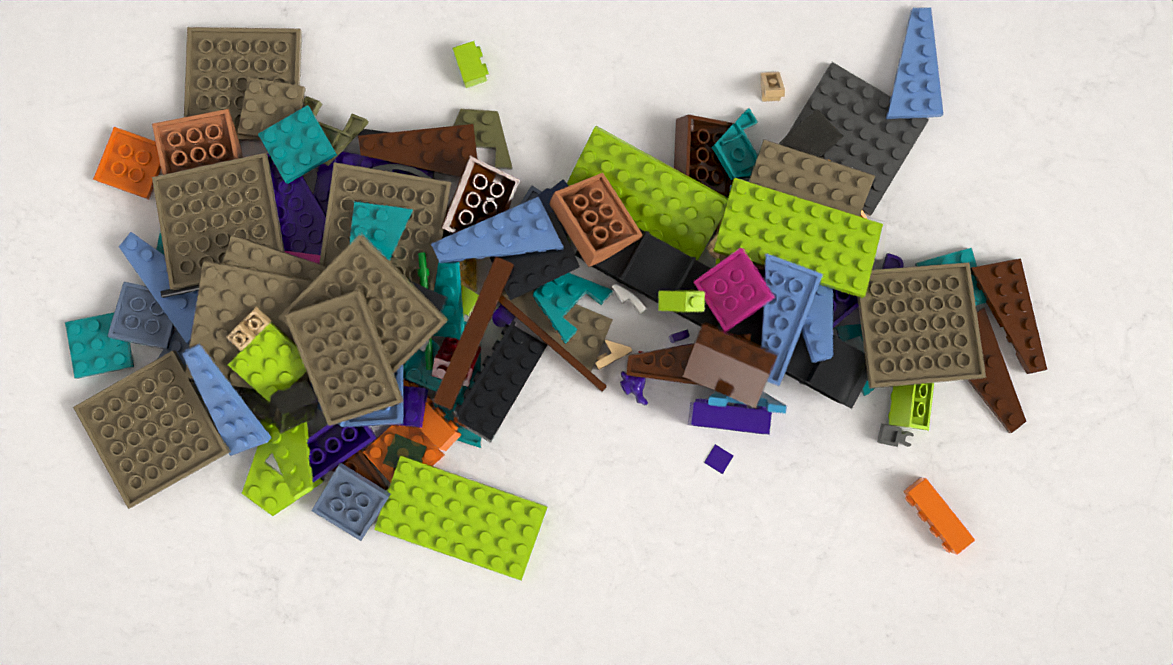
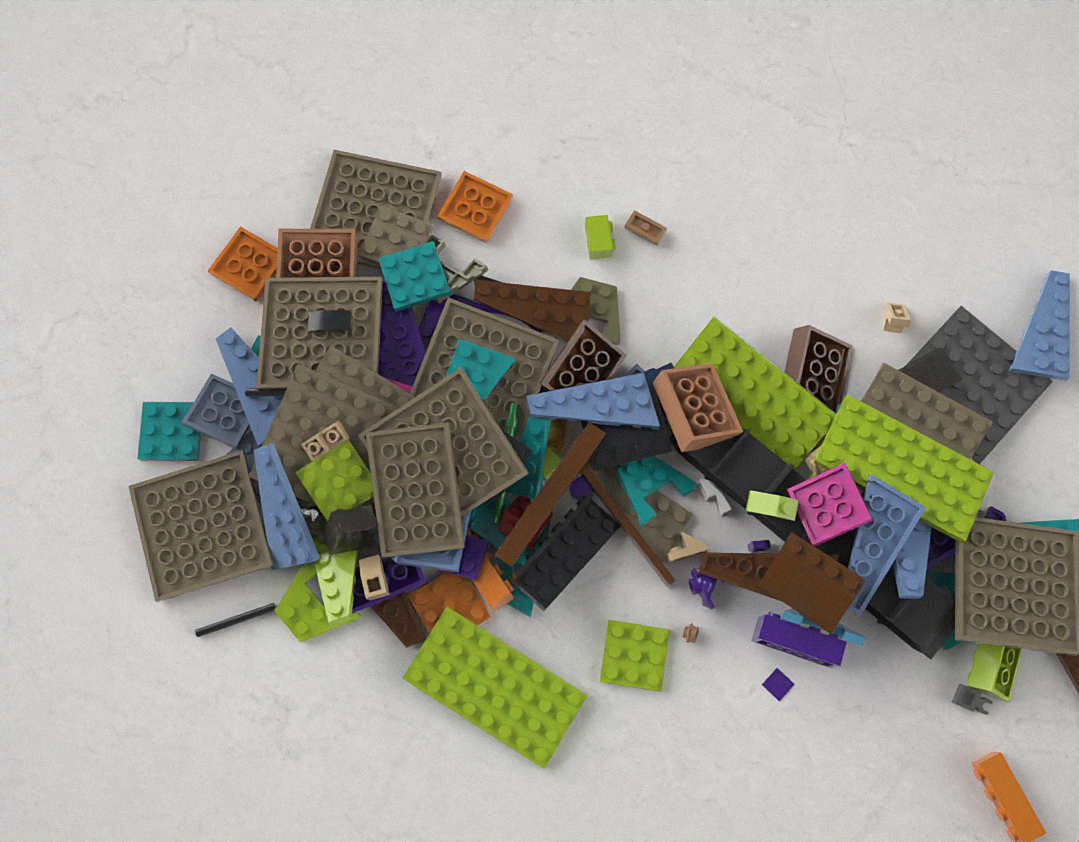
camera: 15 degrees right, 10 degrees down
(208, 508) = (235, 620): none -> black bar
(224, 209) = (329, 320): none -> black slope
(325, 445) = (373, 577): none -> tan slope
(342, 57) = (475, 206): none -> orange plate
(350, 502) = (384, 644): sand blue plate -> none
(404, 447) = (450, 598): clear green piece -> none
(514, 45) = (645, 227): none -> medium nougat plate
(583, 461) = (634, 655): none -> lime plate
(631, 430) = (690, 633): none -> medium nougat plate
(735, 149) = (850, 370): teal wing -> none

